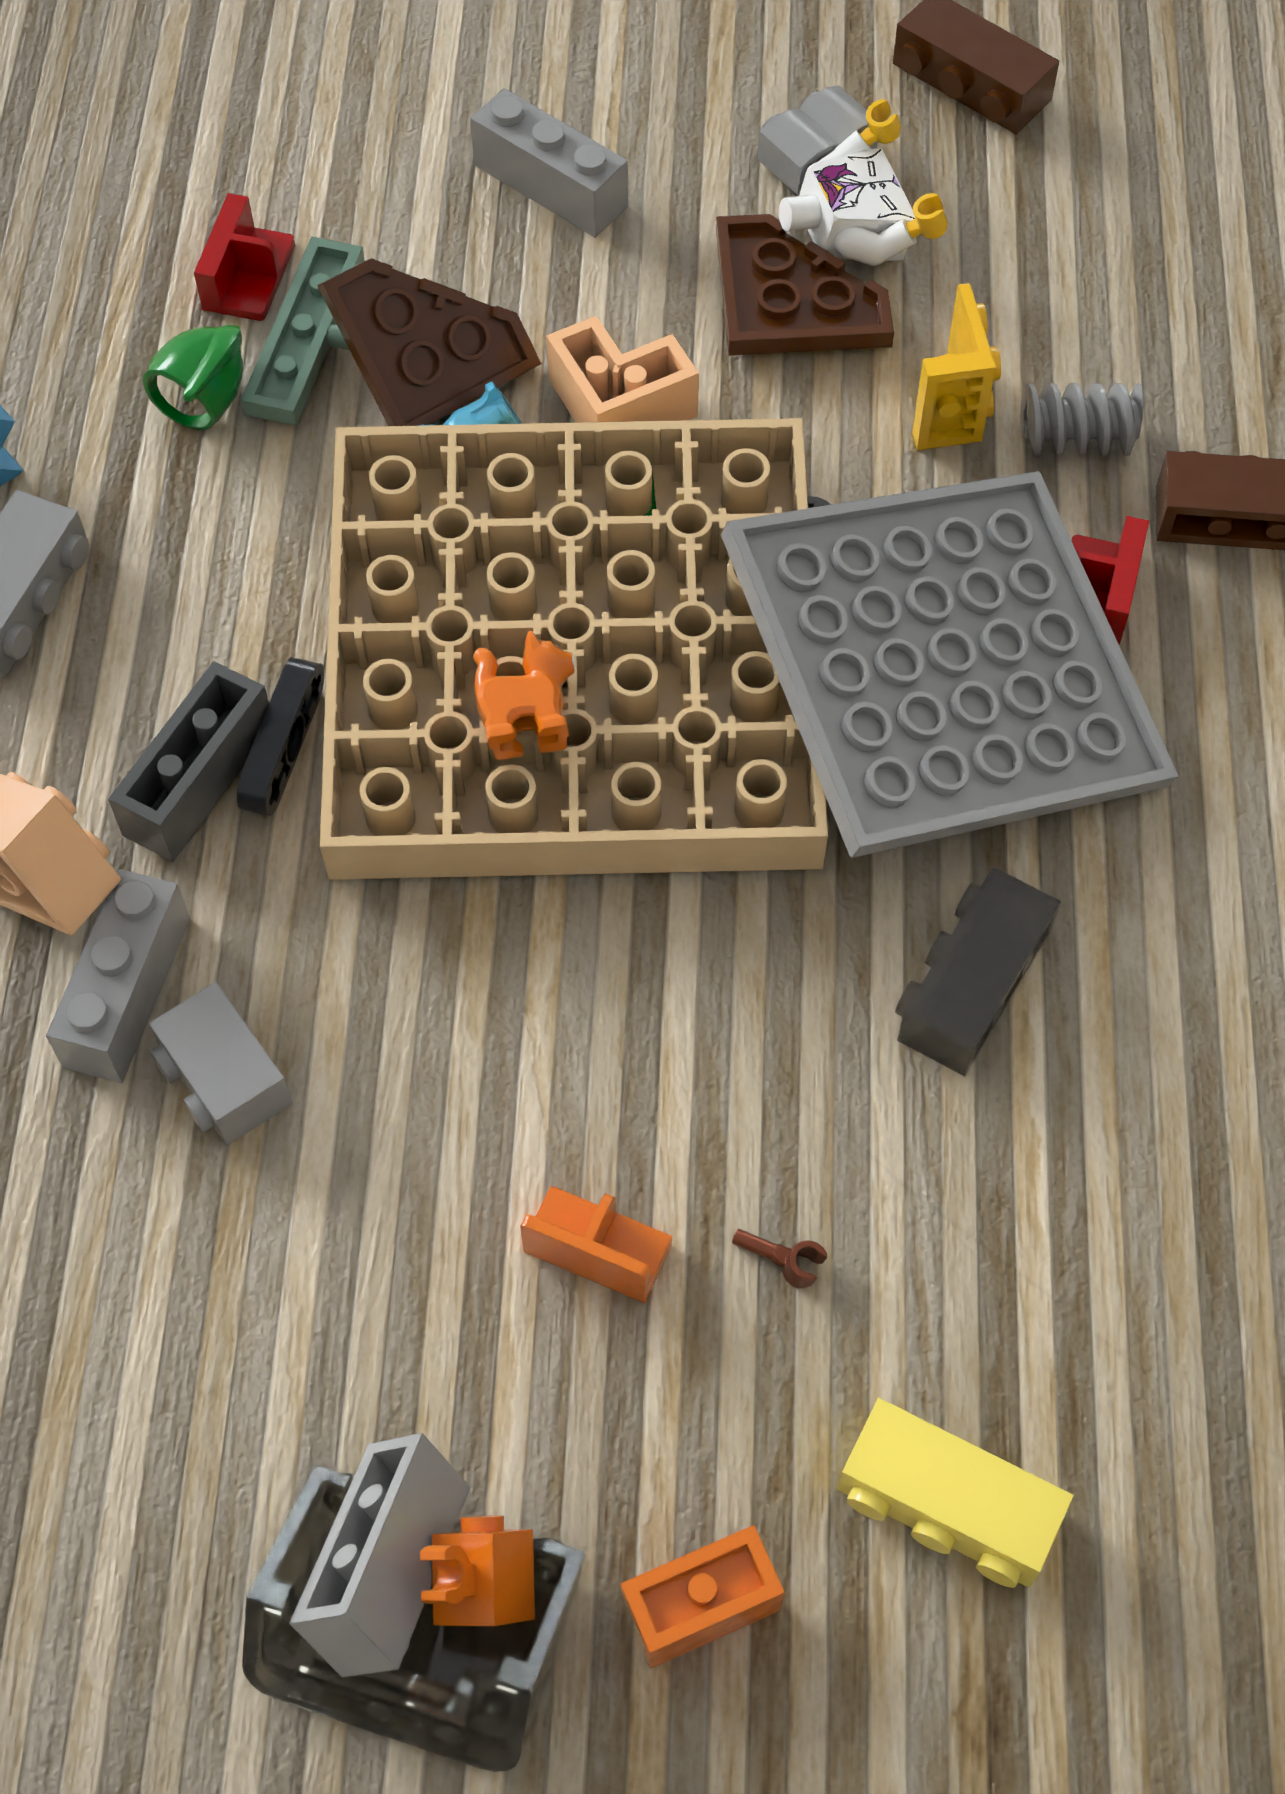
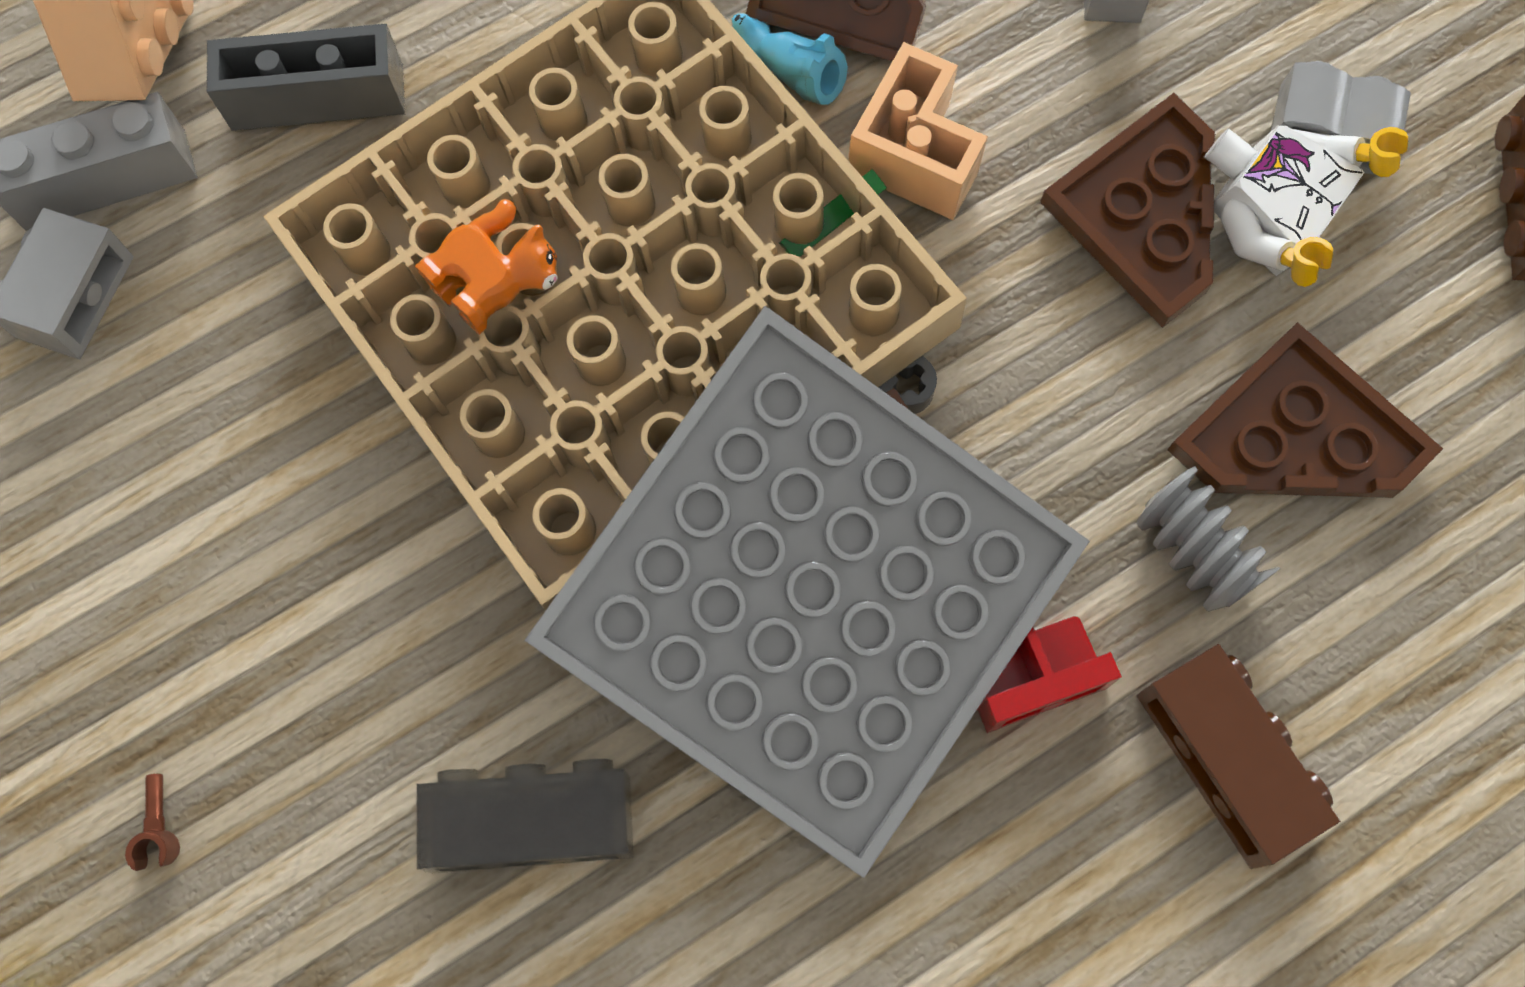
camera: 55 degrees right, 10 degrees up
(280, 736) = (346, 132): black beam -> none
(596, 1242) = (66, 669): orange panel -> none
(957, 386) = (1131, 420): yellow bracket -> none
(1044, 310) = (1304, 429): none -> reddish brown plate

